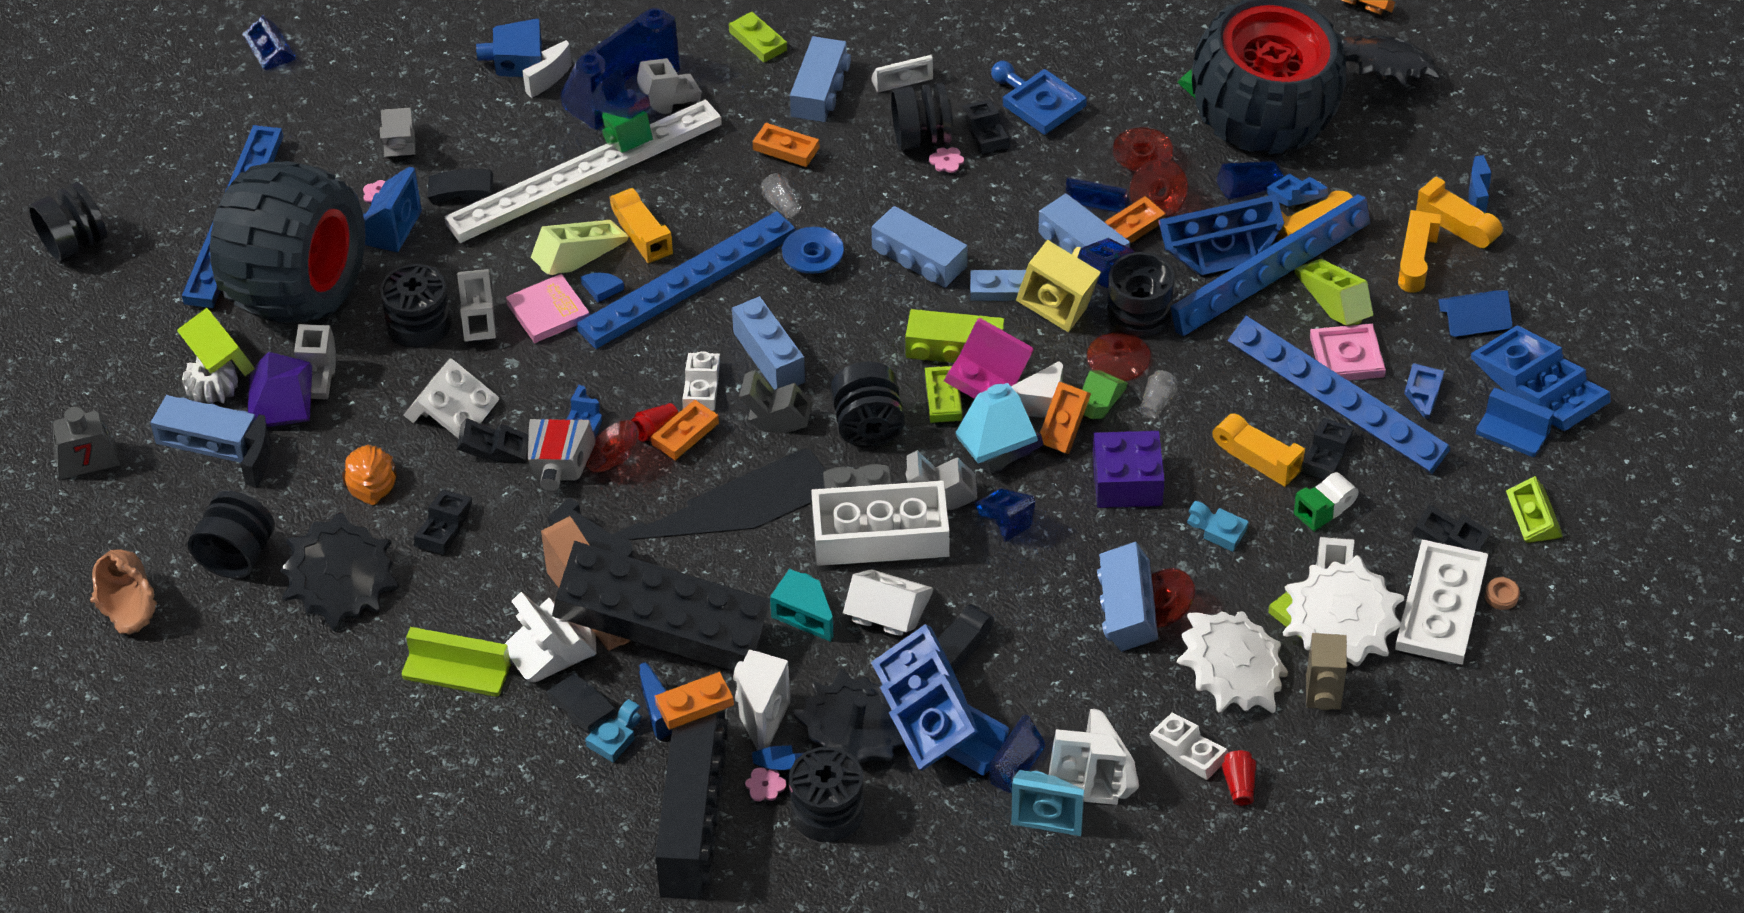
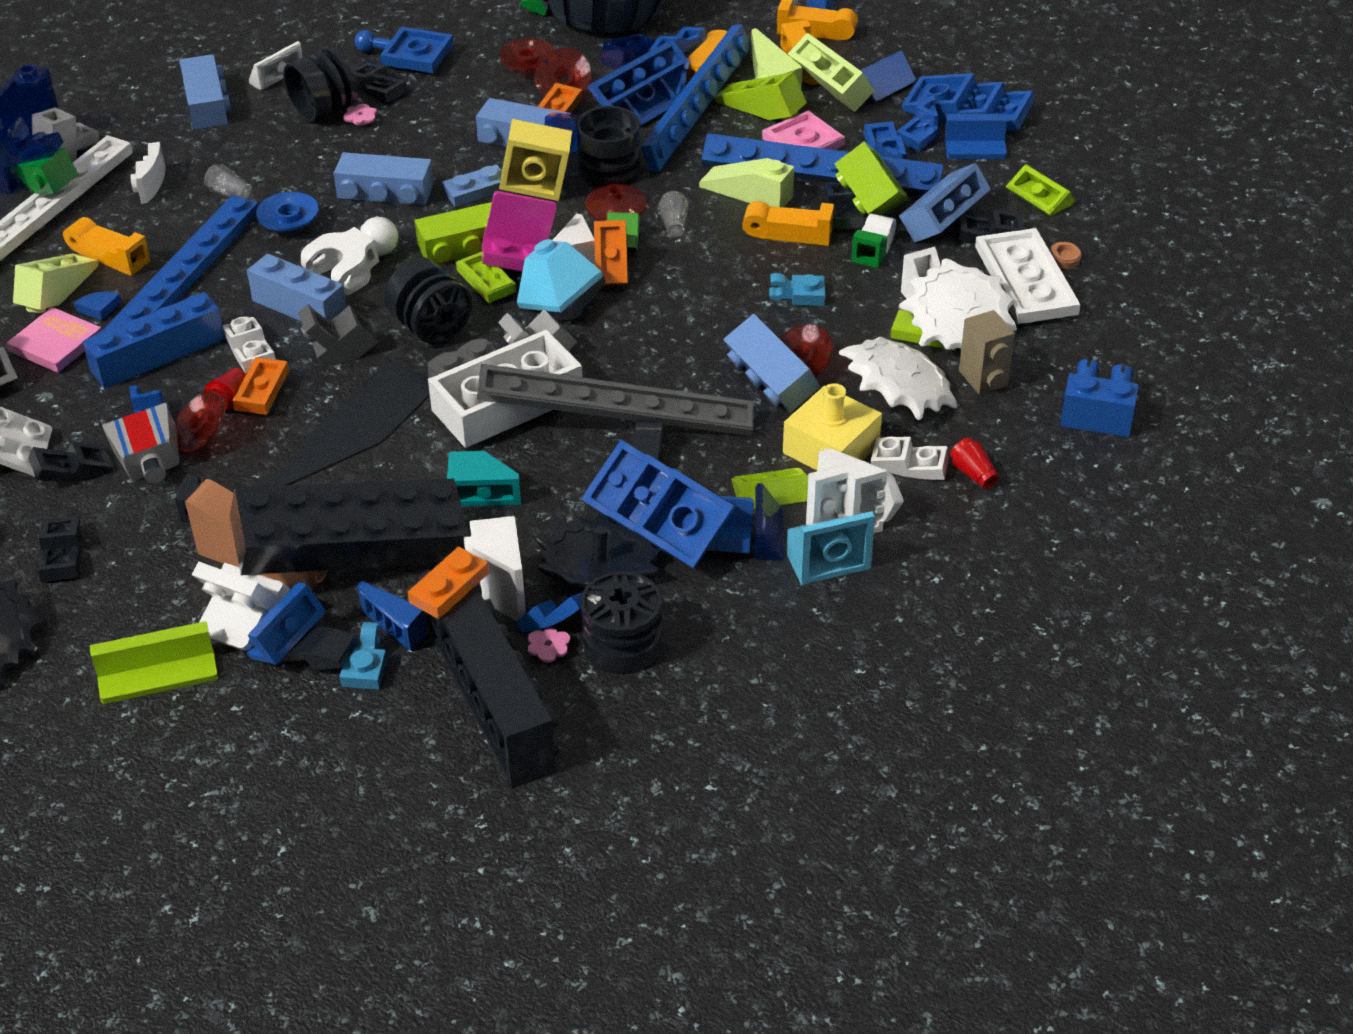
camera: 30 degrees left, 5 degrees down
(564, 675) = (285, 625): none -> blue panel
(622, 346) = (154, 340): none -> blue brick
(719, 158) = (149, 173): none -> white slope
(758, 37) = (123, 82): lime plate -> none
(786, 144) = (205, 146): orange plate -> none
(840, 321) = (351, 252): none -> white piece
(886, 601) = (556, 448): white slope -> none
(962, 578) = (615, 399): none -> dark grey tile
(1010, 510) = (616, 336): clear blue slope -> none
(1048, 716) = (785, 485): none -> lime slope
(1097, 195) = (519, 92): clear blue slope -> none
(1128, 469) = (694, 272): dark purple brick -> none
(1132, 690) = (831, 422): none -> light yellow brick
(1256, 388) = (753, 181): none -> yellowish green slope
(1359, 437) = (870, 181): none -> lime slope
(1370, 255) = (770, 59): none -> yellowish green slope
(1397, 768) = (1100, 402): none -> blue brick
(1418, 291) = (832, 72): none -> yellowish green slope
(1418, 489) = (945, 202): none -> medium blue brick
(1470, 389) = (922, 127): none -> blue slope

